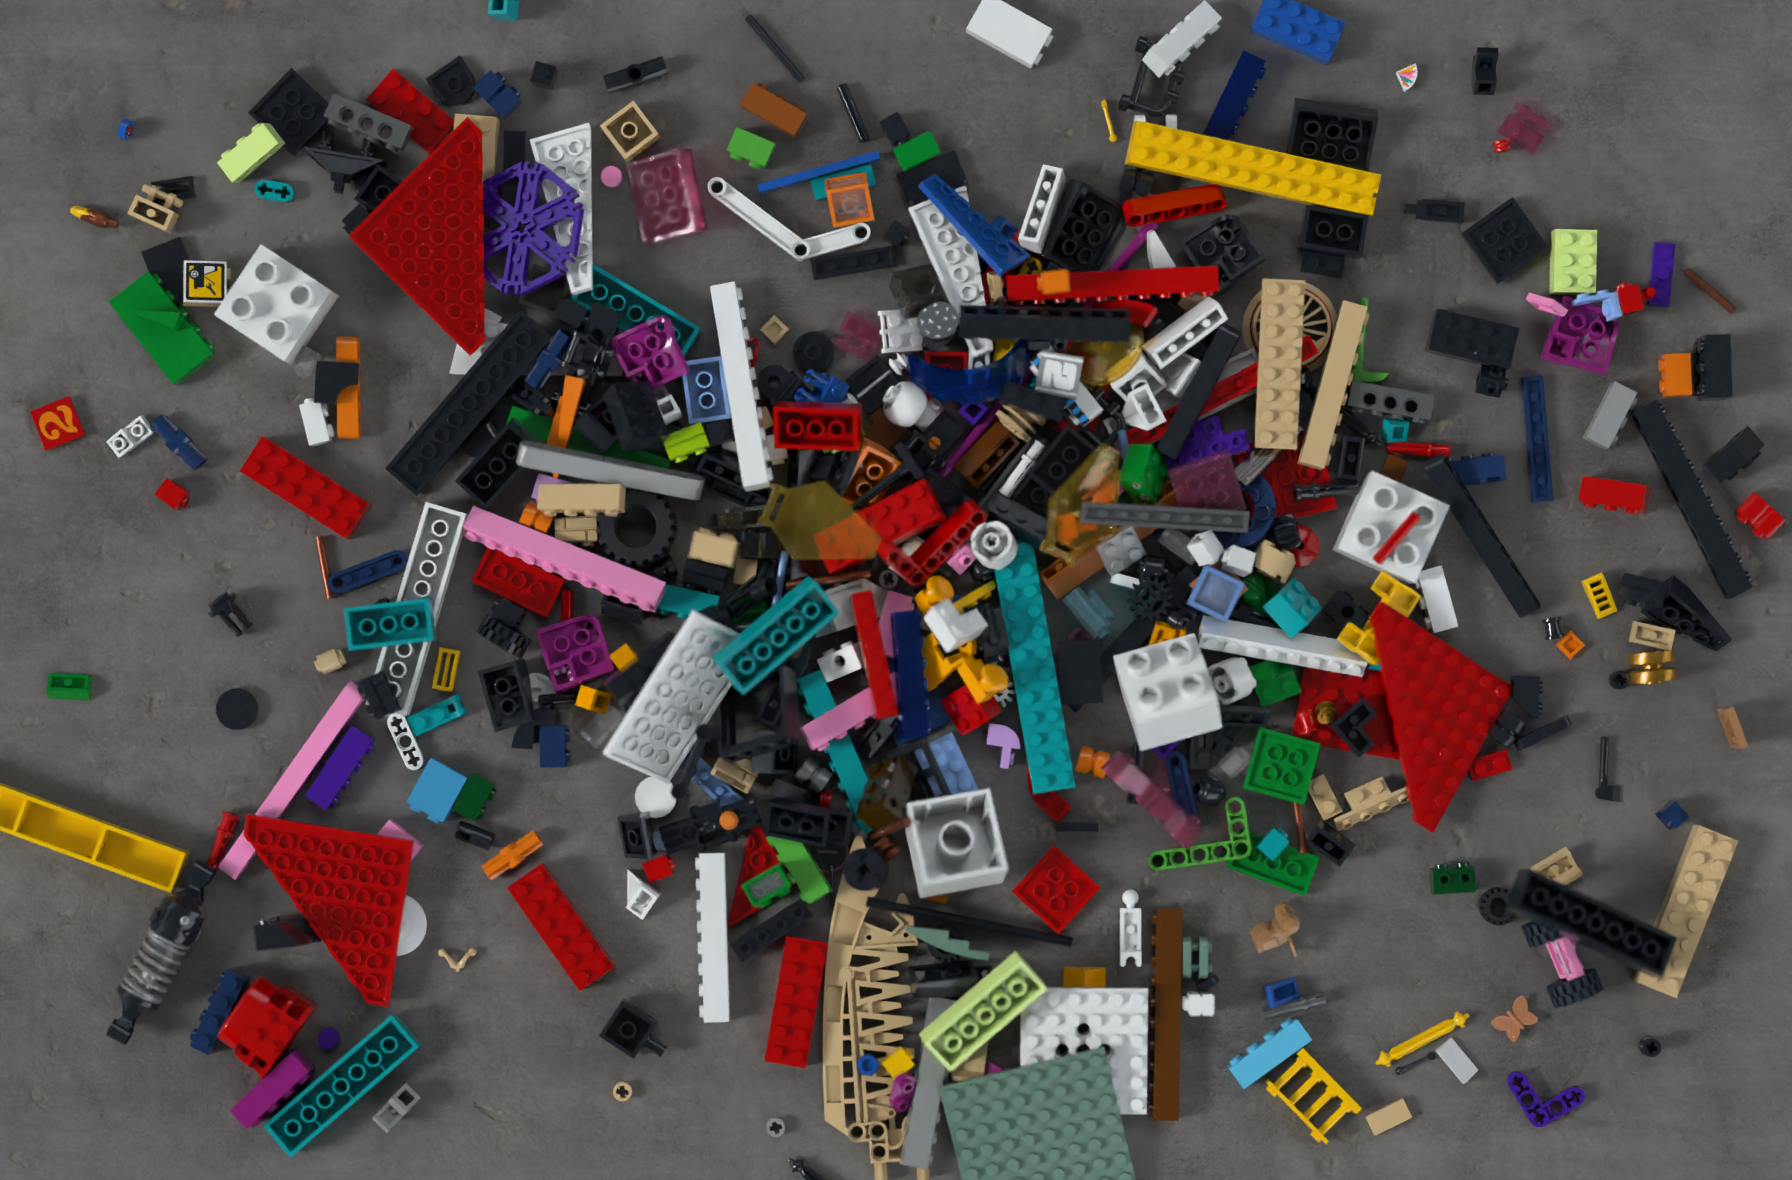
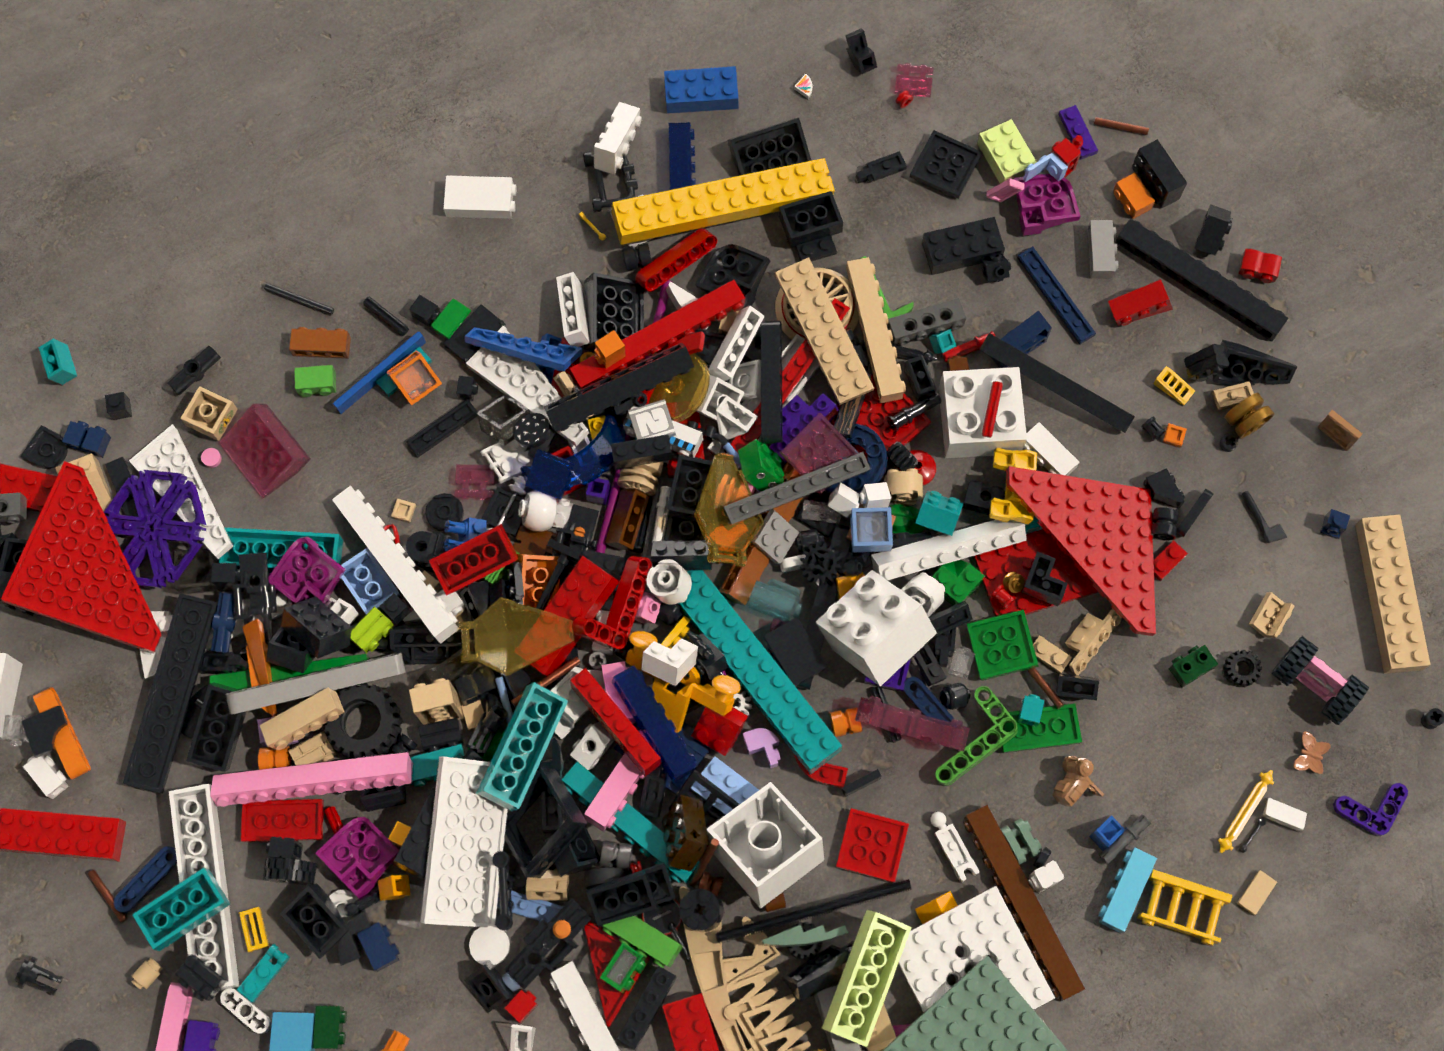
camera: 30 degrees left, 15 degrees down
(779, 233) = (372, 433): white piece -> none
(932, 378) = (549, 474): none -> clear blue tile
(1590, 923) = (1327, 633): black brick -> none

